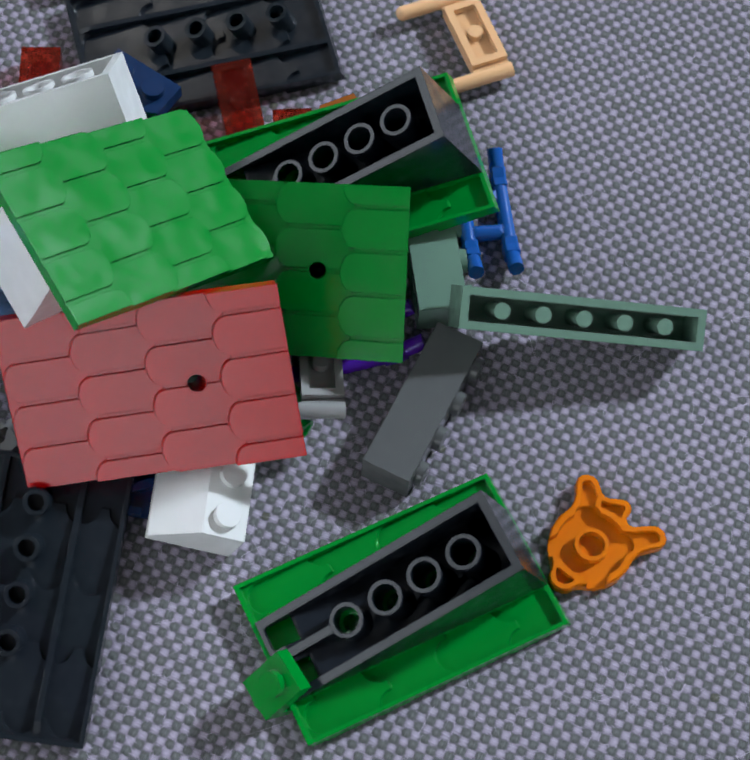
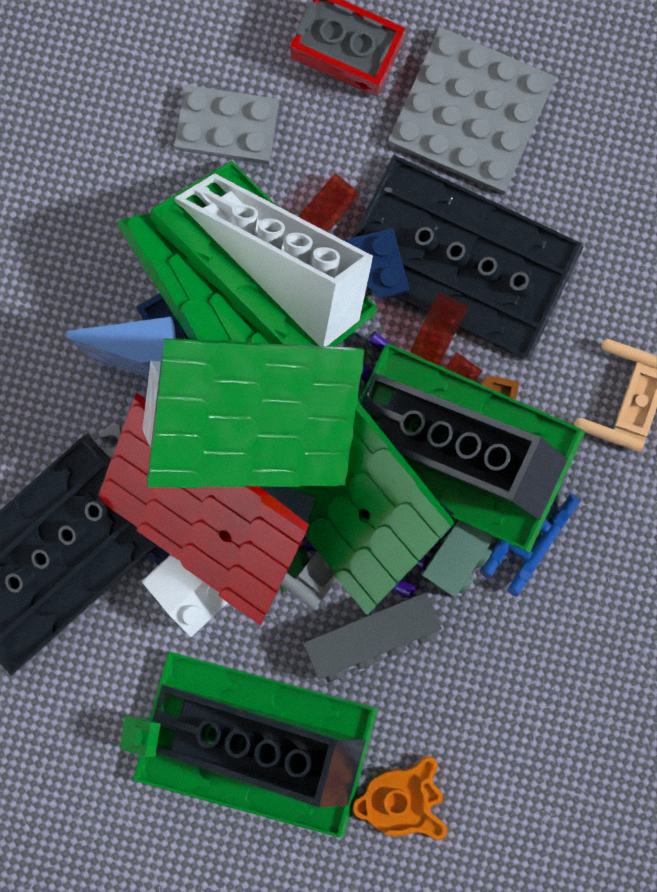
camera: 50 degrees right, 20 degrees up
(576, 318) = (511, 664): sand green brick -> none

